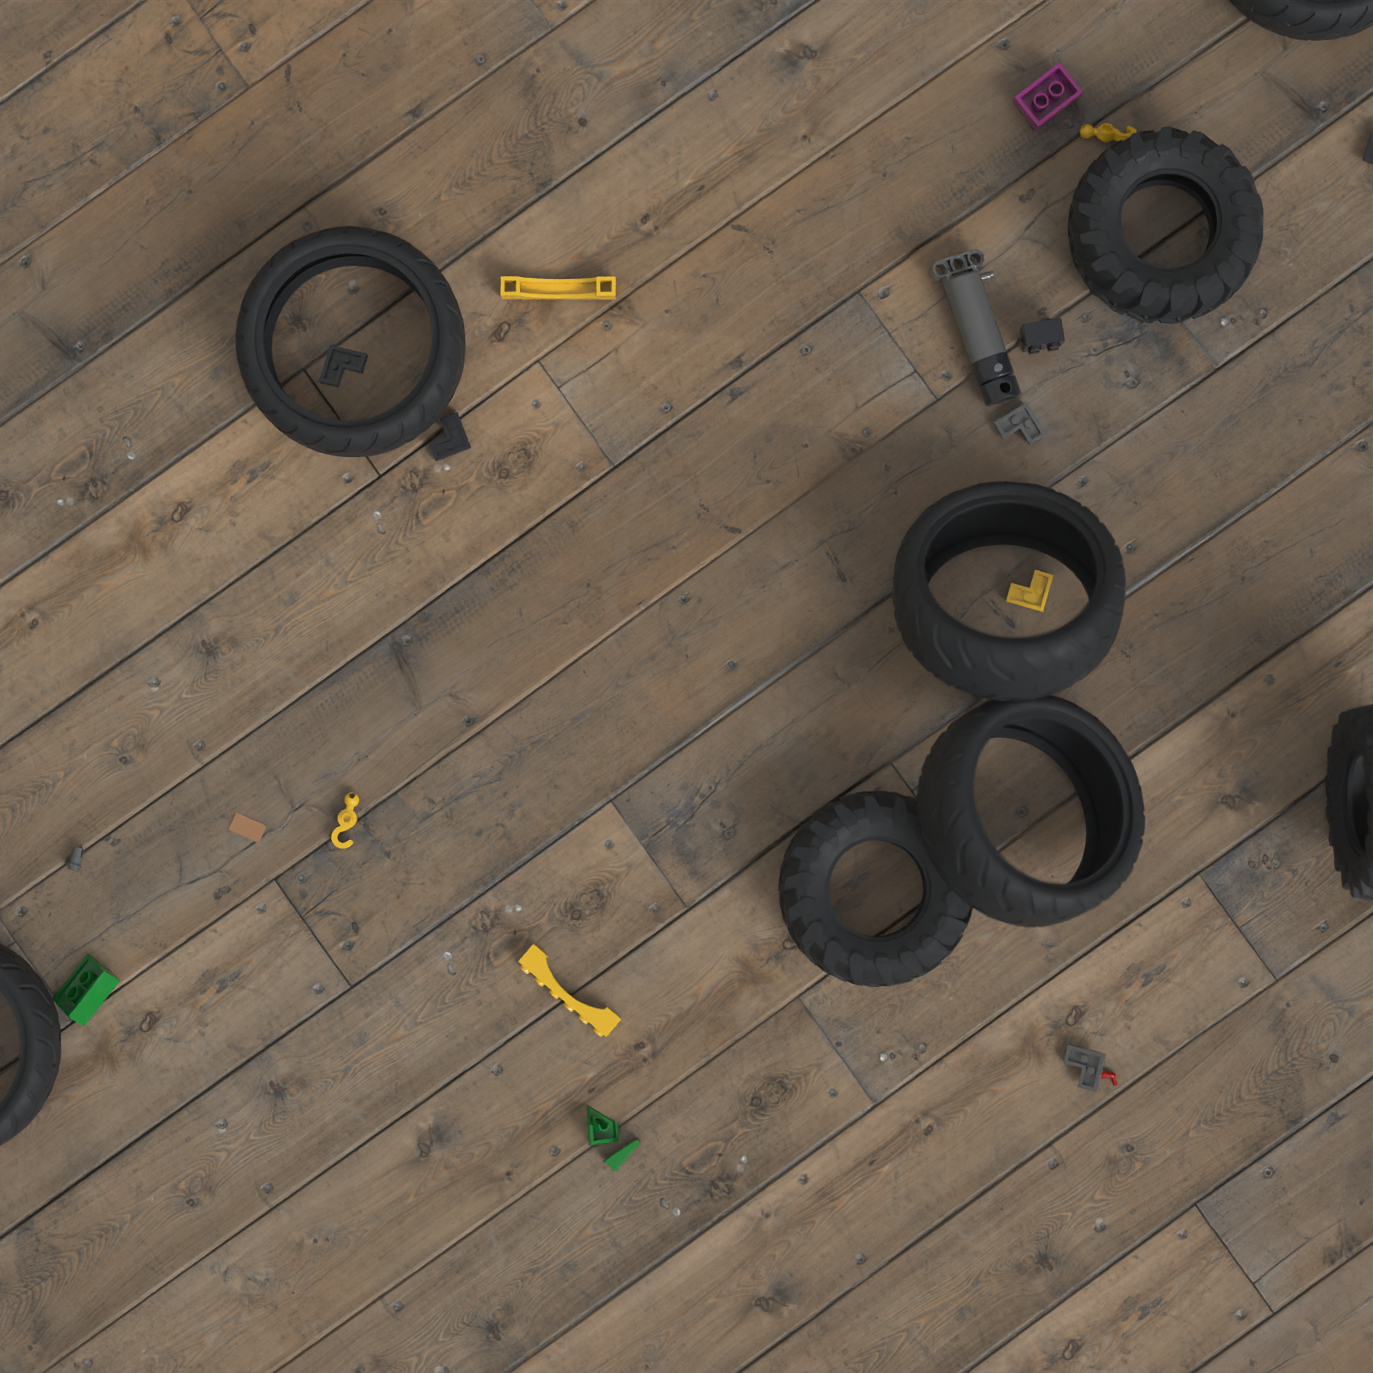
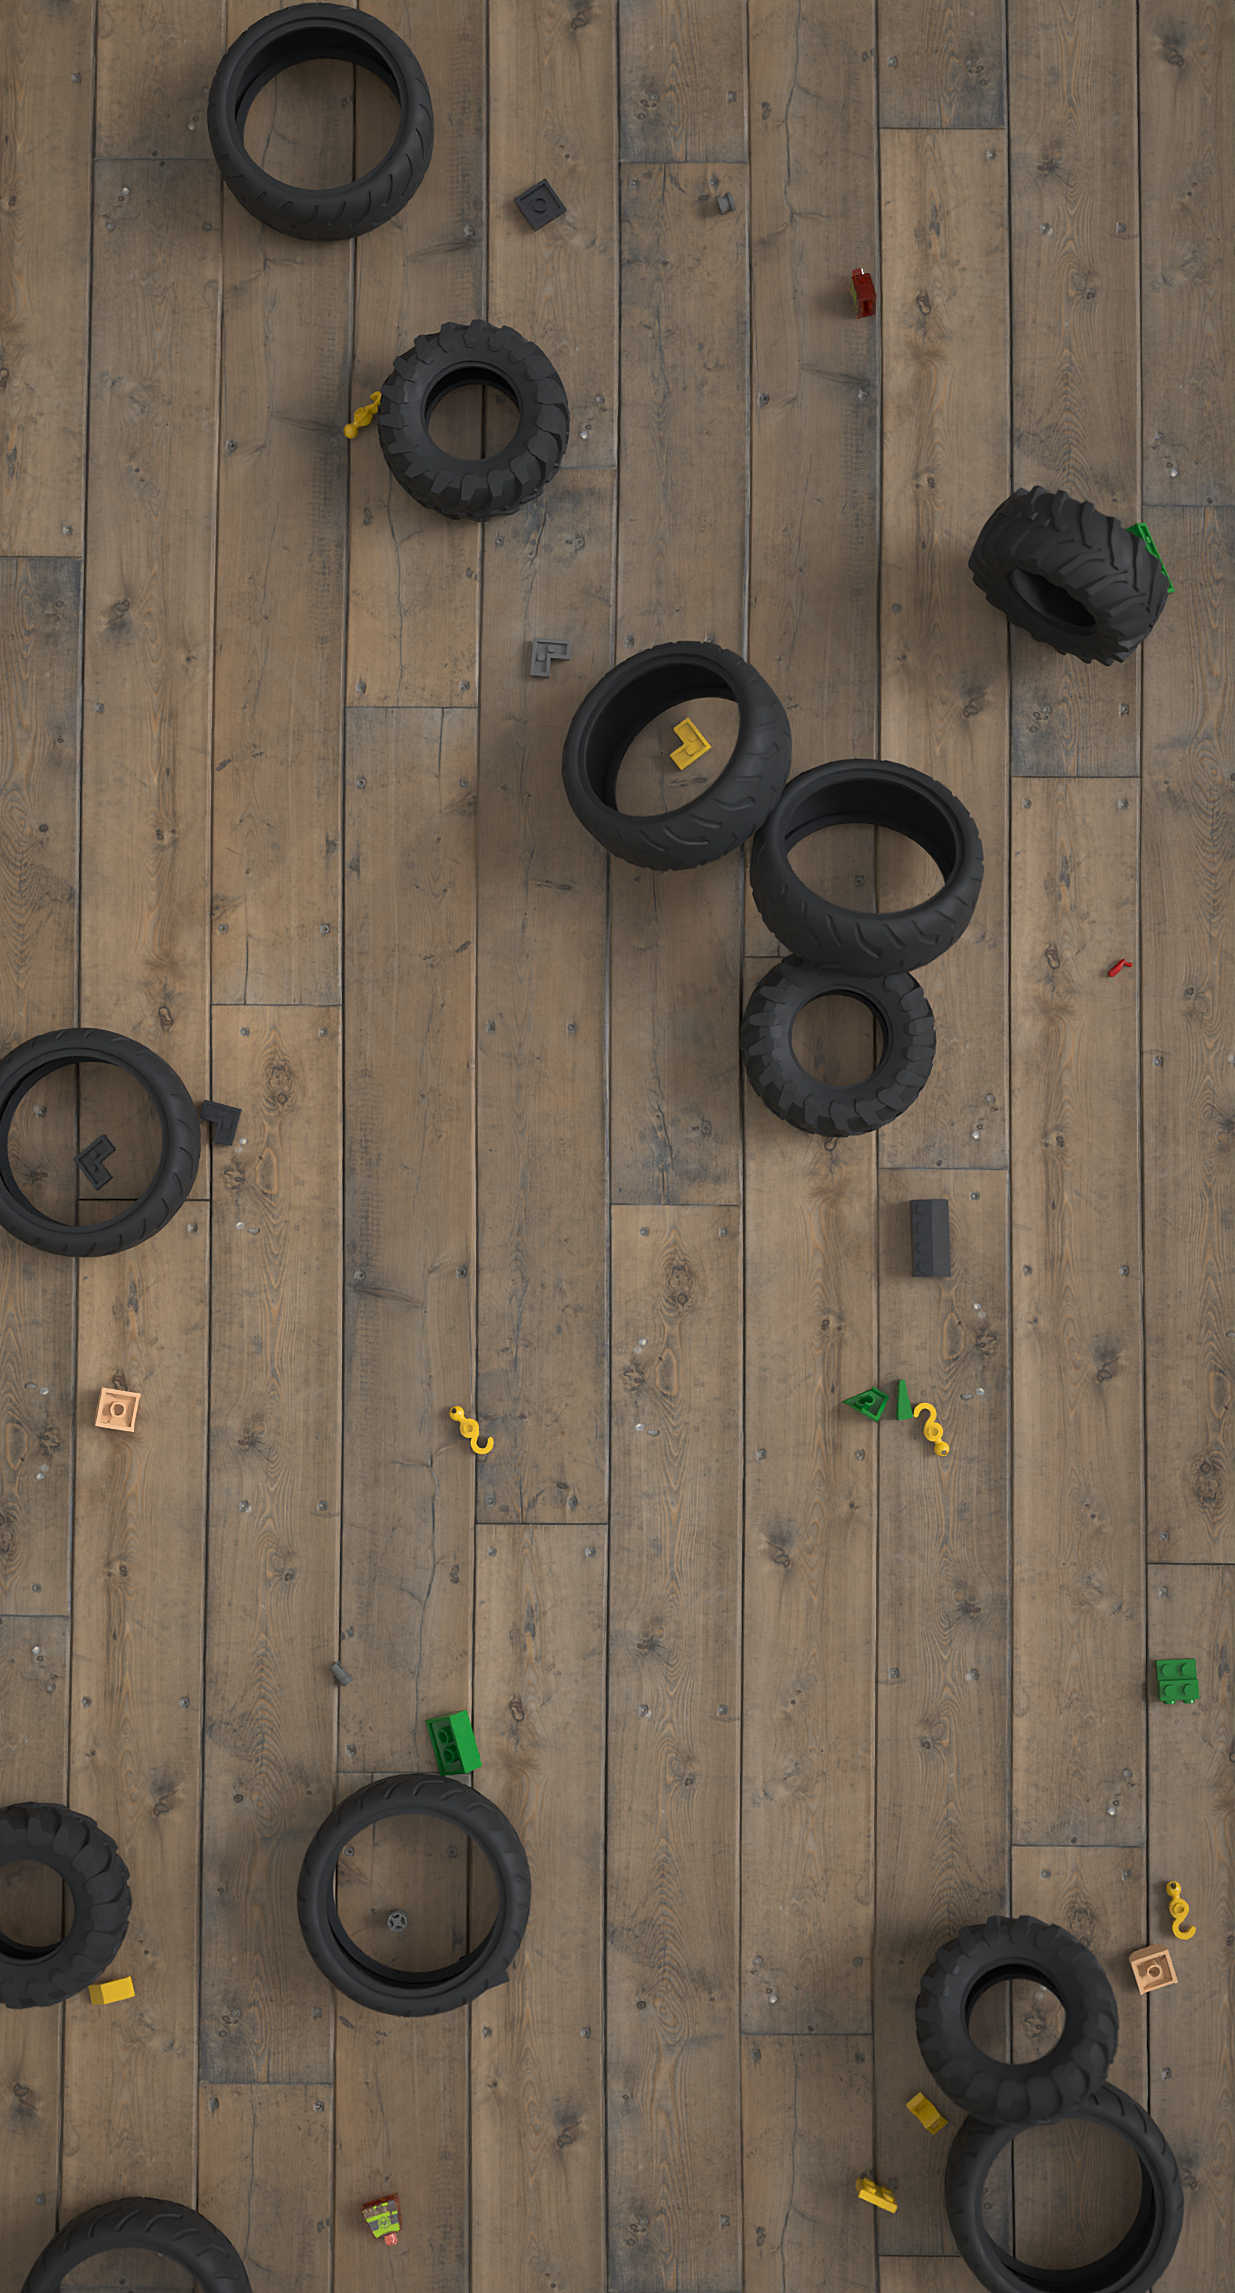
camera: 55 degrees left, 0 degrees up
(158, 524) = (116, 1409): none -> light nougat slope
(247, 827) = (417, 1515): medium nougat sticker -> none
(530, 288) = (147, 968): yellow arch -> none
(602, 1019) = (782, 1339): yellow arch -> none
(616, 1195) = (932, 1430): none -> yellow piece
(771, 1081) = (930, 1238): none -> black slope
(977, 325) = (442, 630): dark grey piece -> none
(1042, 335) = (489, 585): black brick -> none
(1047, 96) = (299, 441): magenta brick -> none
(1090, 1062) = (1100, 971): dark grey plate -> none

